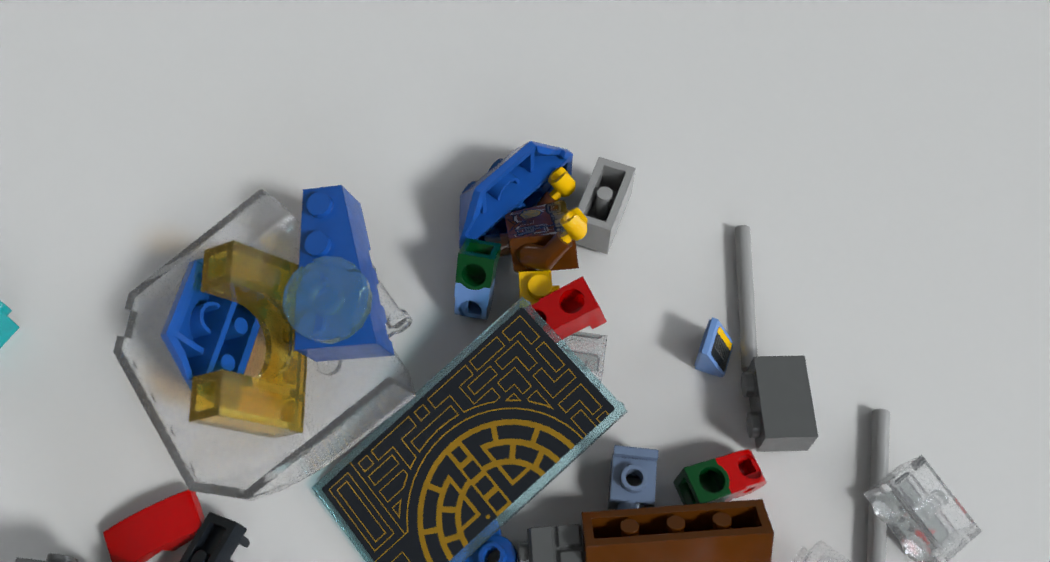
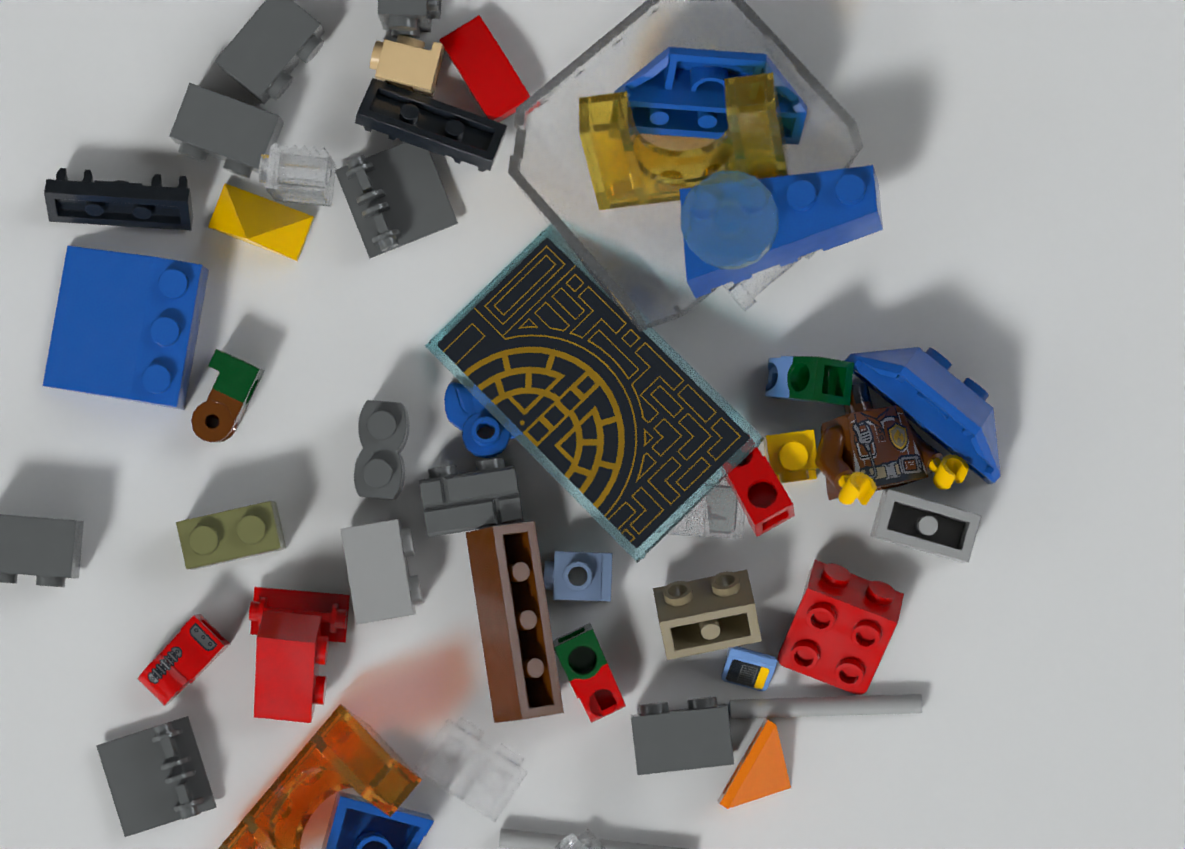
camera: 85 degrees right, 25 degrees up
(671, 372) = (707, 614): none -> dark tan brick
(683, 274) = (841, 628): none -> red bracket
(793, 341) = (759, 771): none -> orange slope

